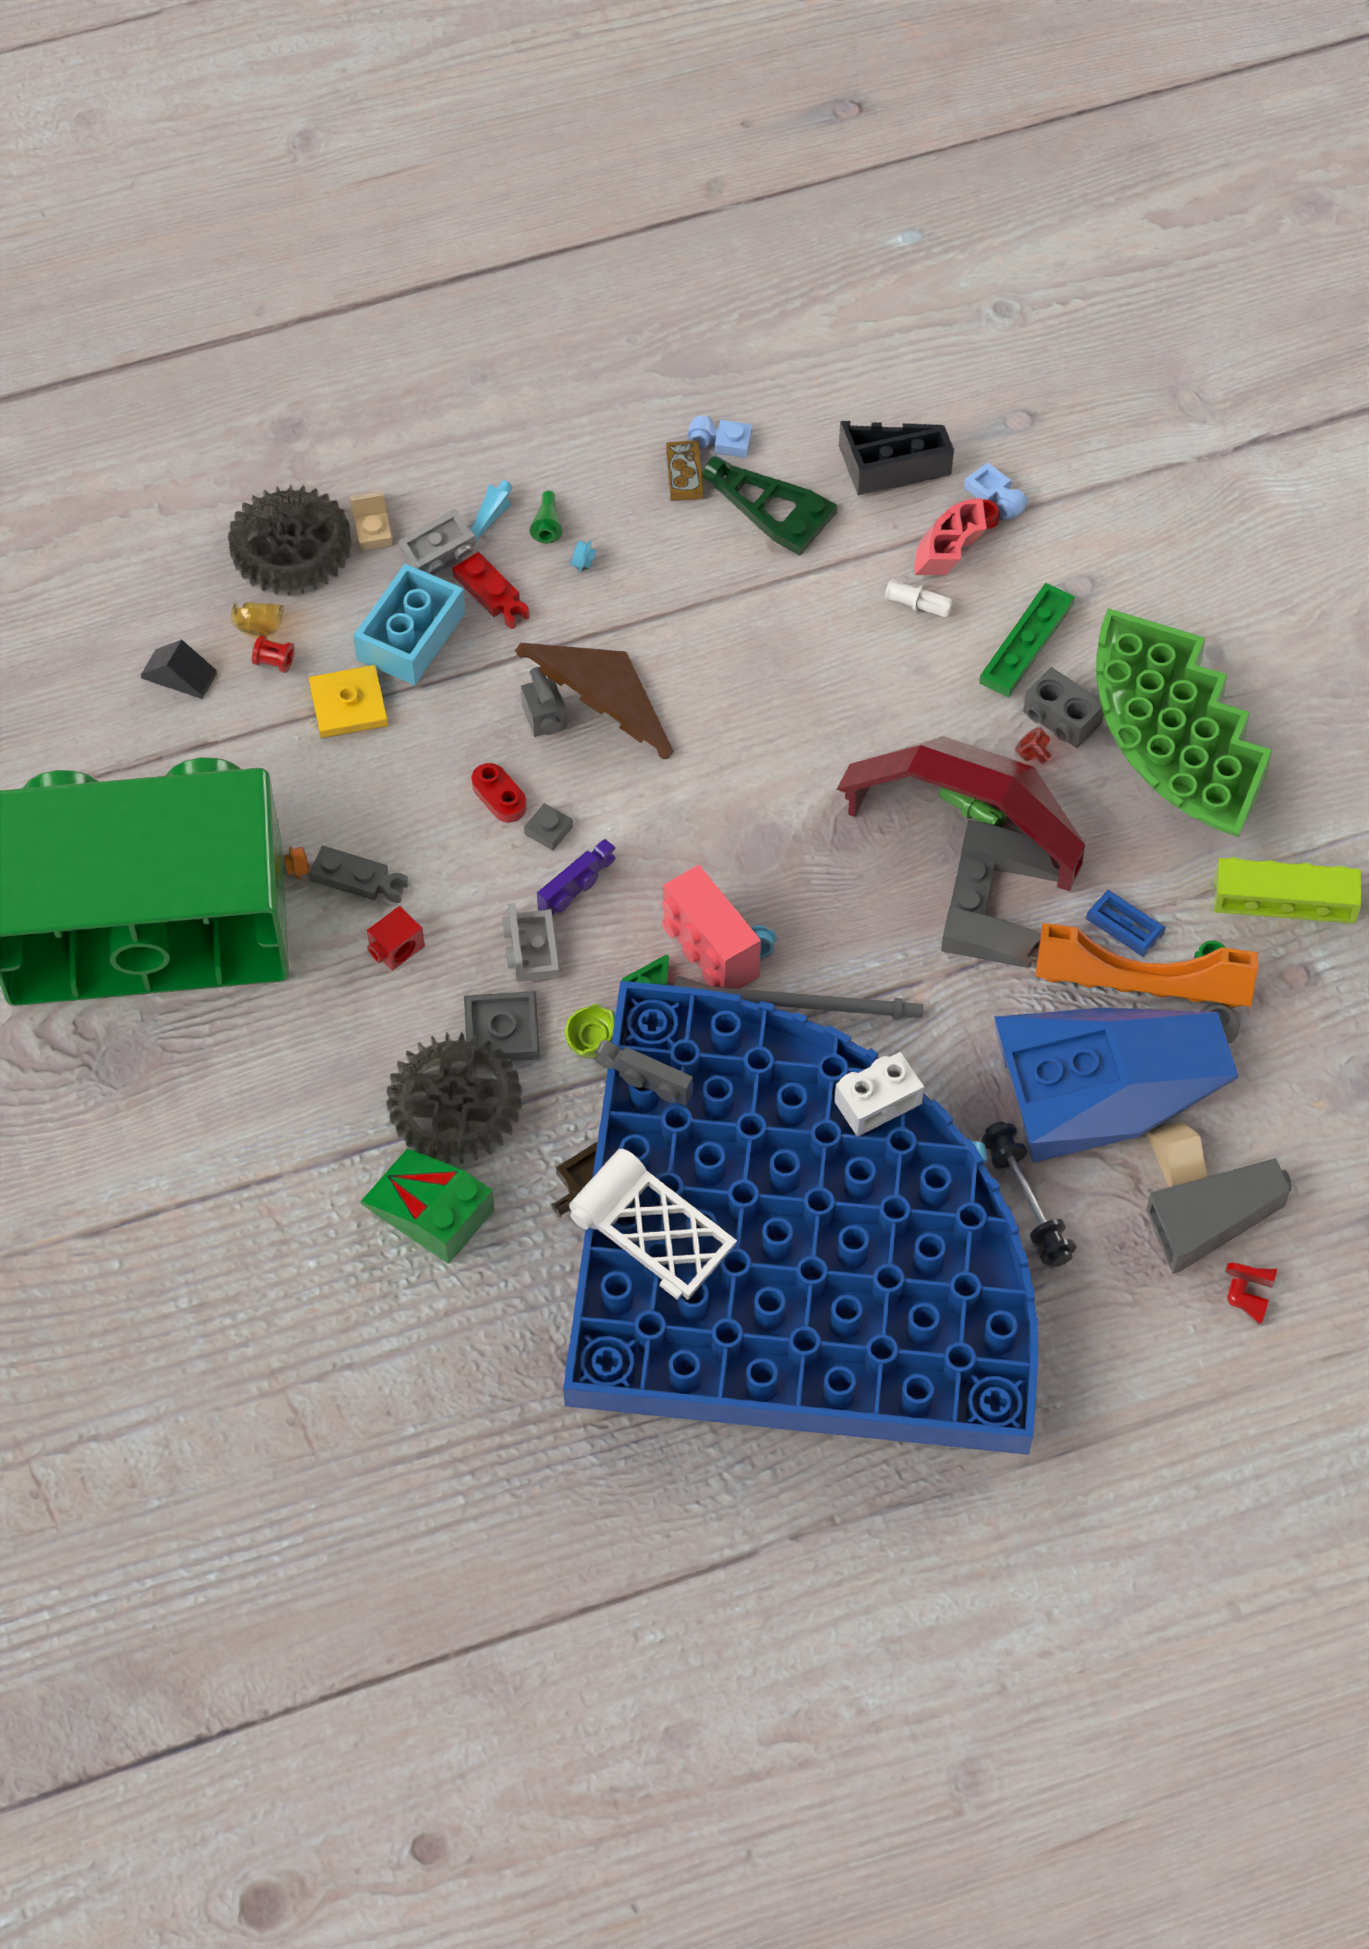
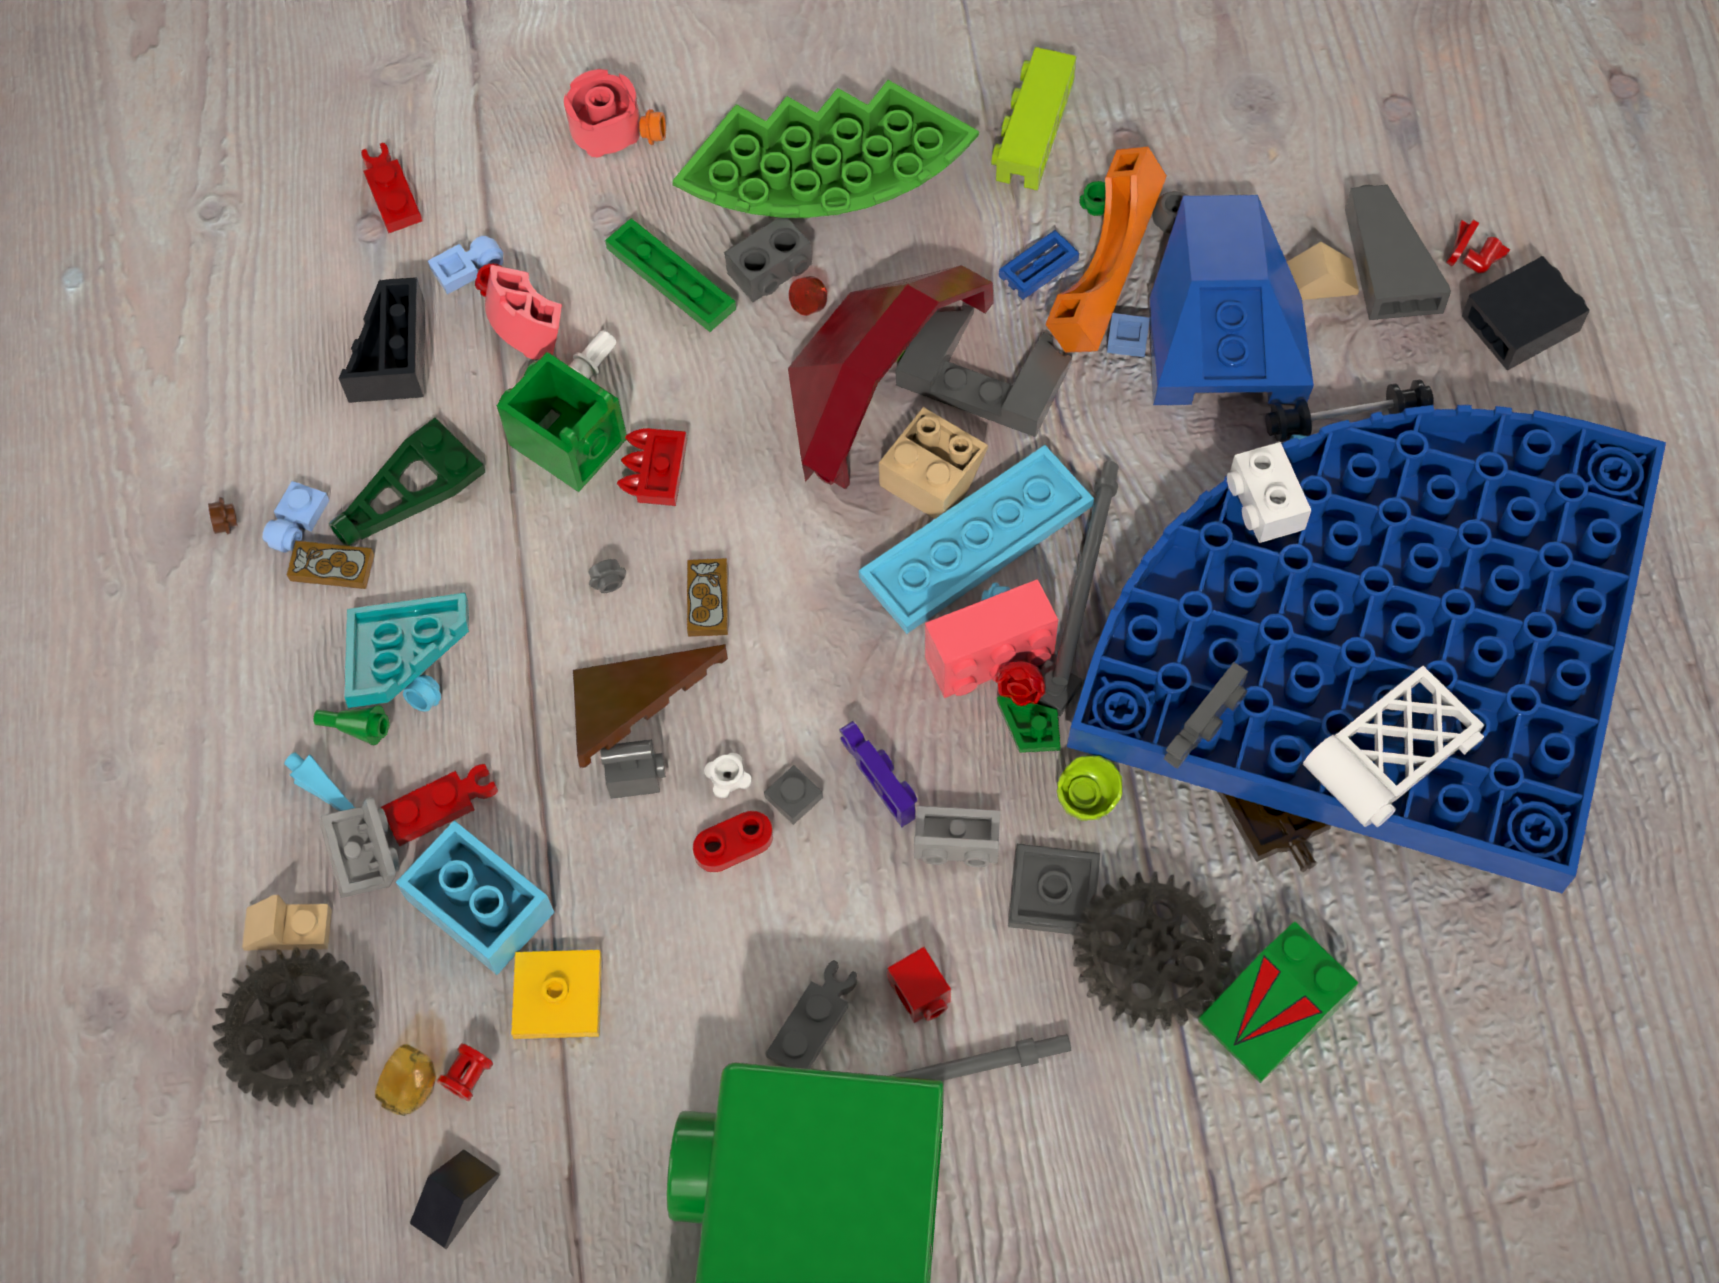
camera: 75 degrees left, 5 degrees up
(353, 1023) = (1025, 1052): none -> dark grey bar
(553, 768) = (727, 763): none -> white plate
(617, 524) = (397, 643): none -> teal plate
(678, 962) = (1021, 683): none -> red plate
(708, 388) = (222, 516): none -> reddish brown plate
(716, 655) = (606, 576): none -> dark grey plate
(716, 731) = (707, 597): none -> tile
(819, 916) = (975, 538): none -> medium azure plate
(830, 669) = (658, 465): none -> red plate
(836, 608) = (582, 435): none -> green container
(877, 864) = (931, 464): none -> tan slope
(1059, 423) = (390, 190): none -> red plate
(1062, 997) = (1128, 335): none -> medium blue plate
(1179, 550) = (602, 112): none -> coral brick
(1183, 596) = (653, 126): none -> orange plate
(1184, 1337) = (1525, 312): none -> black brick

